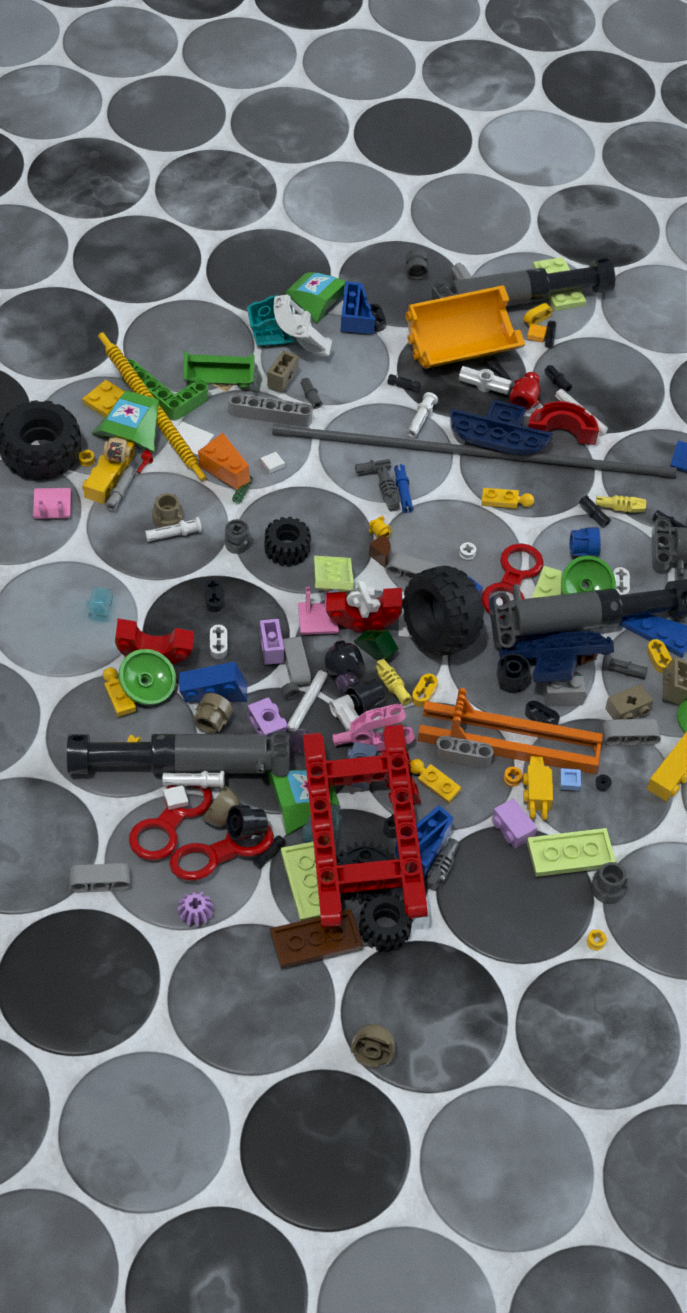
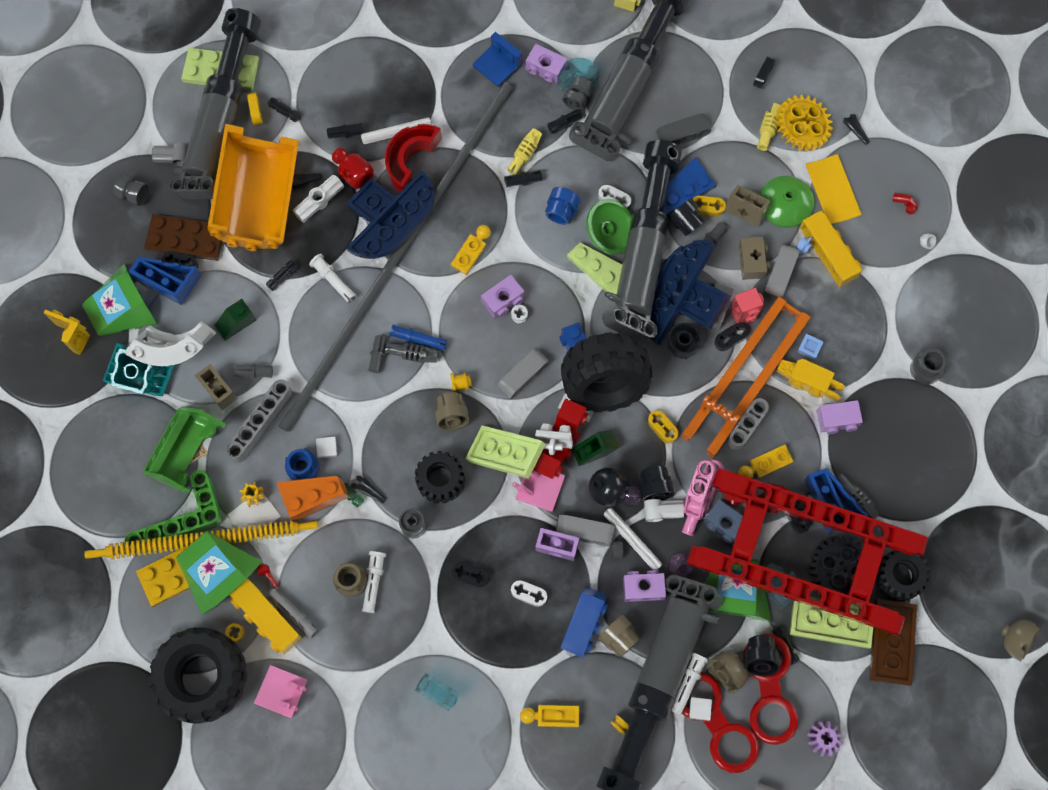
camera: 60 degrees left, 20 degrees up
(116, 450) = (256, 601): head -> none
(152, 668) = (561, 675): bright green dish -> none
(174, 646) = (518, 659): red brick -> none
(205, 426) = (249, 489): none -> yellow gear
(249, 446) = (300, 456): none -> blue piece
(252, 500) = (367, 489): none -> black piece
(274, 270) = (74, 335): none -> yellow bracket
(348, 528) = (451, 412): none -> dark tan piece
(349, 365) = (234, 319): none -> dark green slope
(380, 550) = (487, 392): reddish brown brick -> none
(392, 681) = (643, 451): light yellow hinge -> none
(394, 306) = (182, 236): none -> reddish brown plate
(475, 531) = (507, 287): none -> lavender brick
(513, 576) = (568, 288): red bar -> none
(516, 772) = (781, 396): light orange bush -> none
(536, 333) = (275, 121): light orange tile -> none
(570, 852) = (884, 382): yellowish green plate -> none
(576, 708) = (747, 306): none -> coral brick
(592, 935) = (974, 398): yellow bush -> none
(603, 782) = (826, 318): black piece -> none
(634, 636) = (686, 217): none -> black piece
(667, 742) = (804, 245): none -> light blue plate

